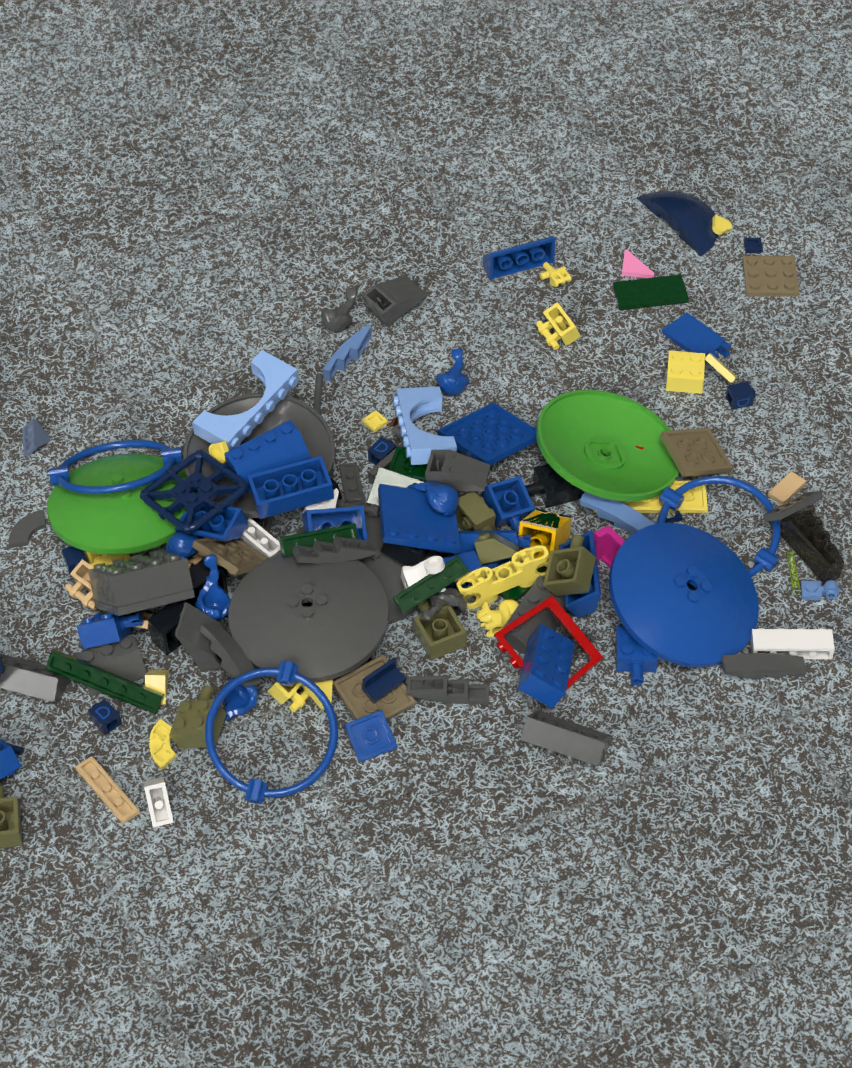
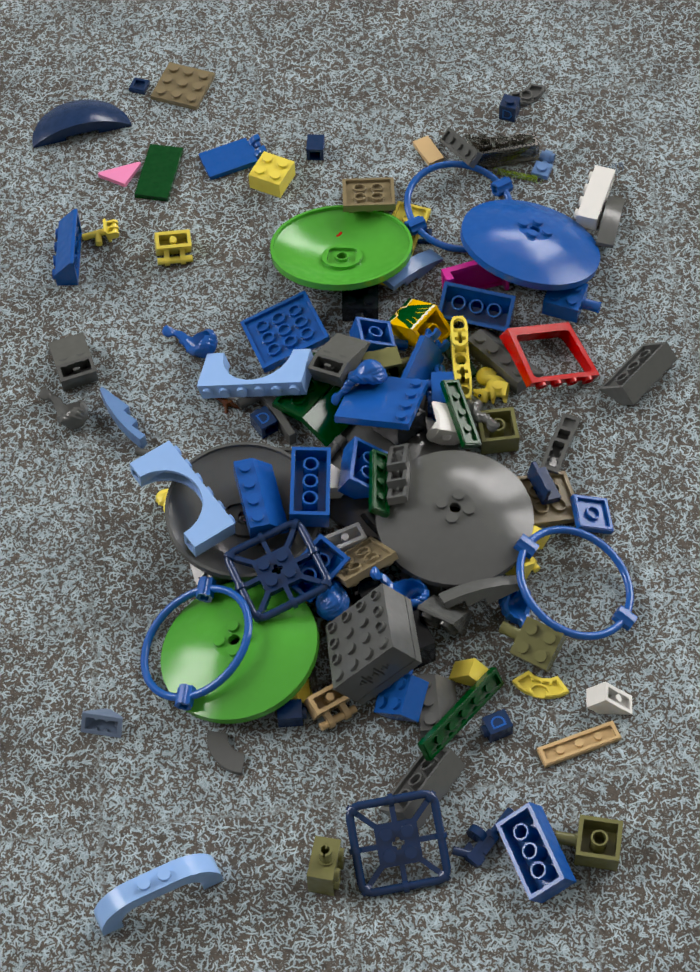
camera: 70 degrees left, 5 degrees up
(218, 449) = (235, 536): light yellow tile -> none
(375, 421) = (217, 420): light yellow tile -> none
(434, 564) = (446, 400): white tile -> none
(494, 547) = (433, 357): olive slope -> none
(546, 666) = (572, 358): blue brick -> none
(570, 569) = (481, 307): olive brick -> none
(720, 225) = (105, 98): light yellow tile -> none
(720, 367) = (282, 148): light yellow tile -> none

